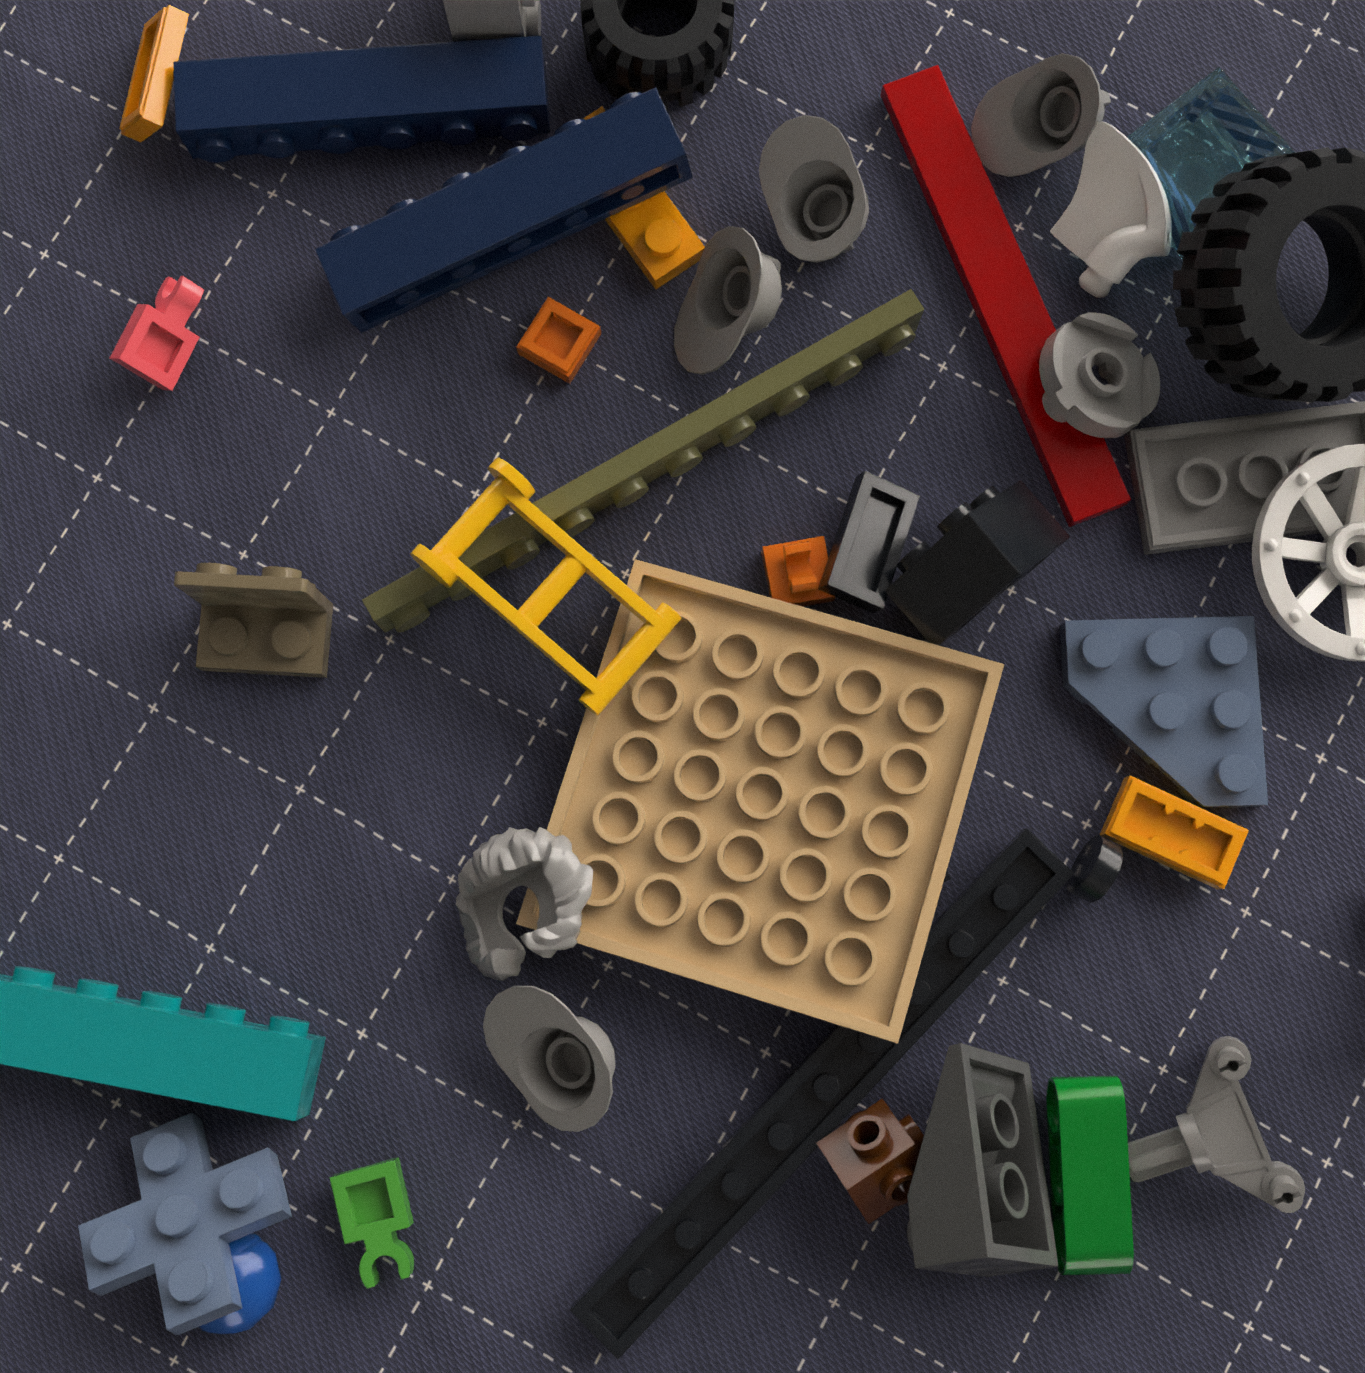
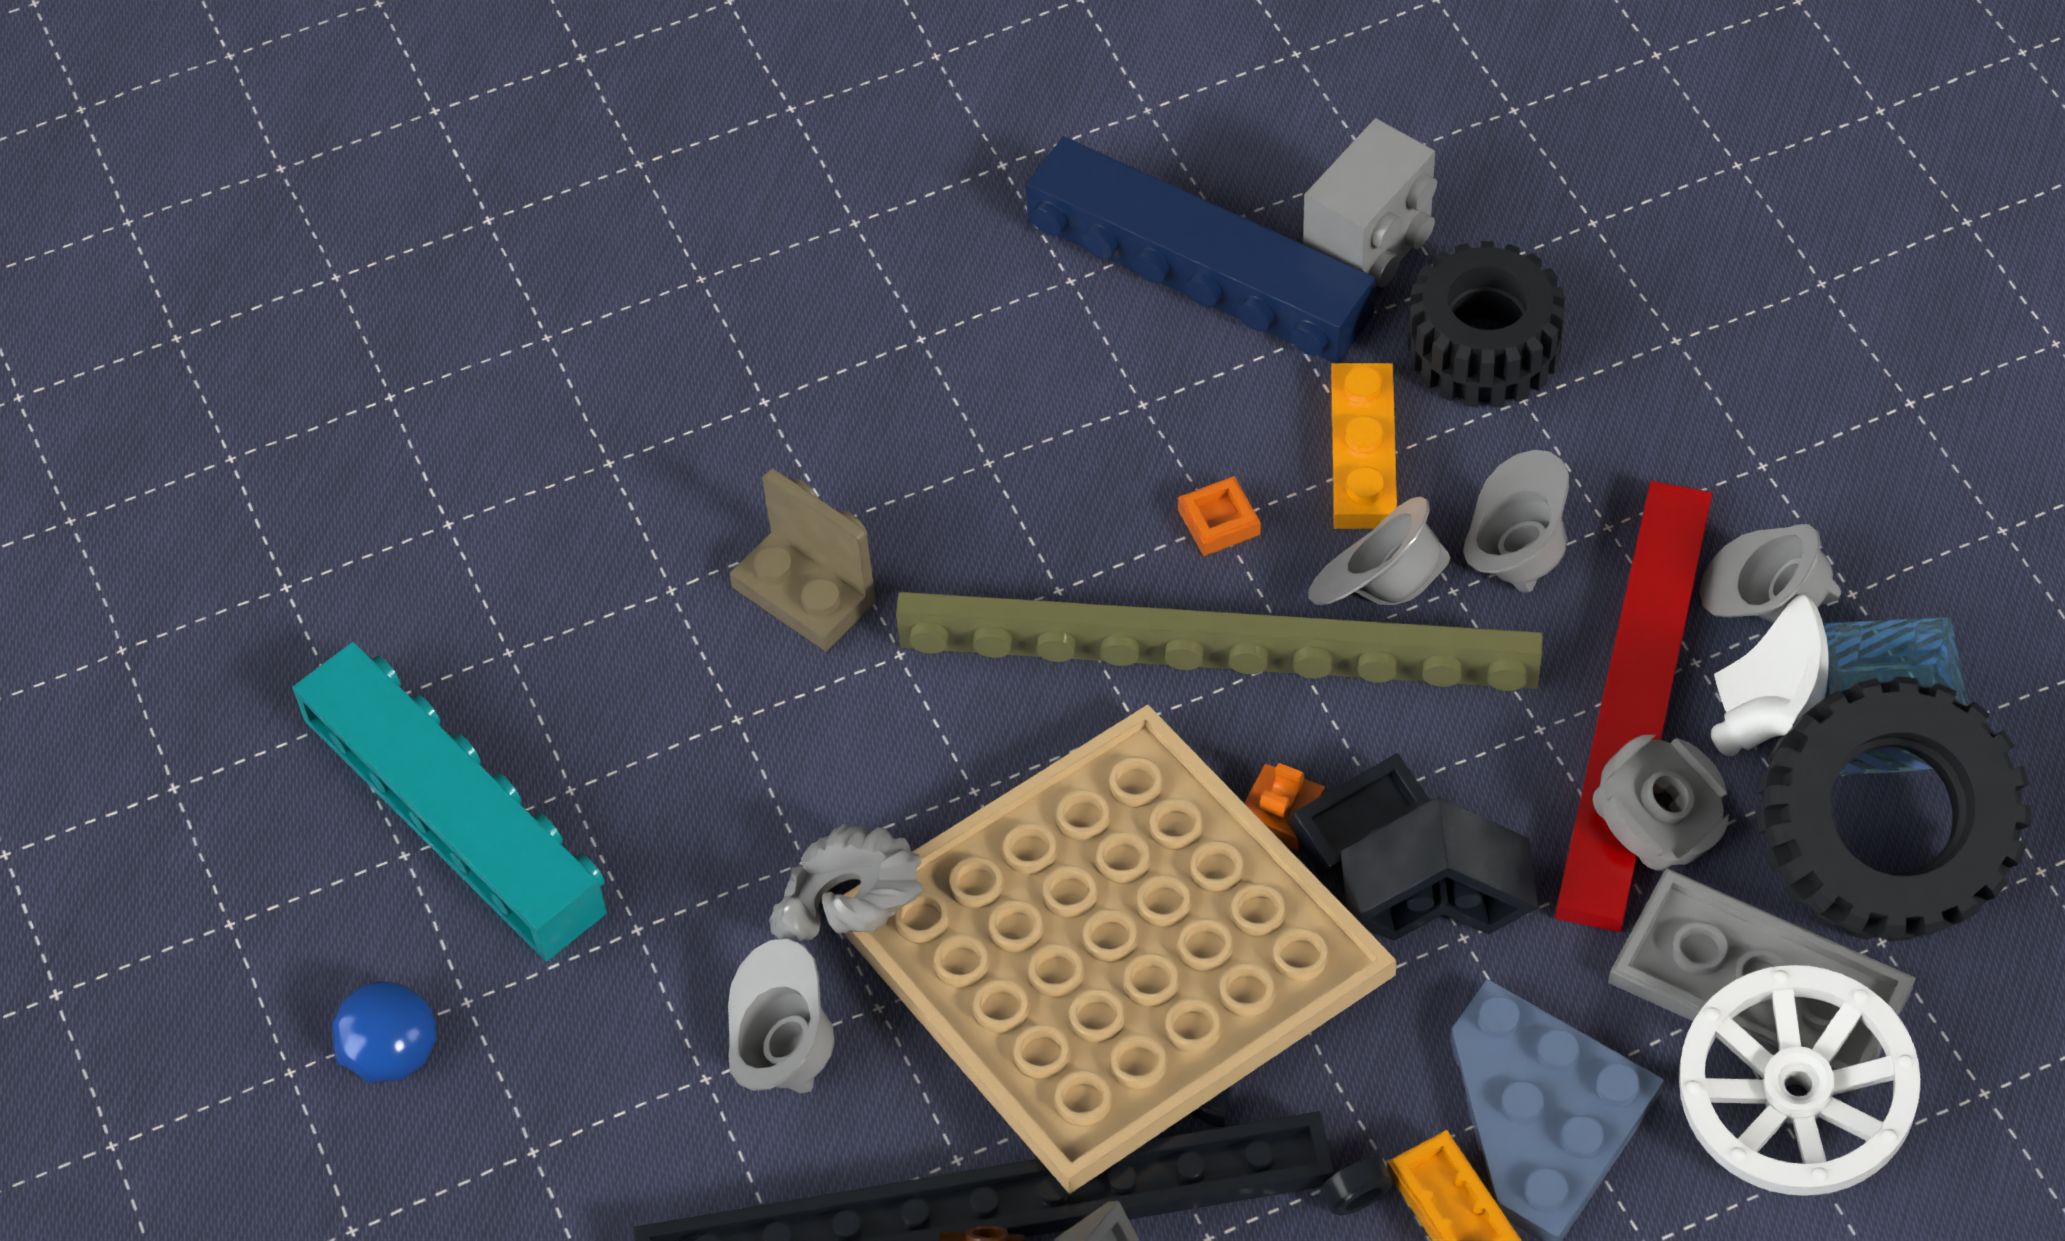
camera: 40 degrees right, 25 degrees down
(153, 73) = (1042, 140): light orange tile -> none
(156, 338) = (893, 325): coral plate -> none
(184, 1223) = (391, 953): sand blue plate -> none
(372, 1208) = (537, 1054): bright green plate -> none
(505, 210) = (1245, 387): dark blue brick -> none
(515, 490) = (1083, 579): yellow piece -> none

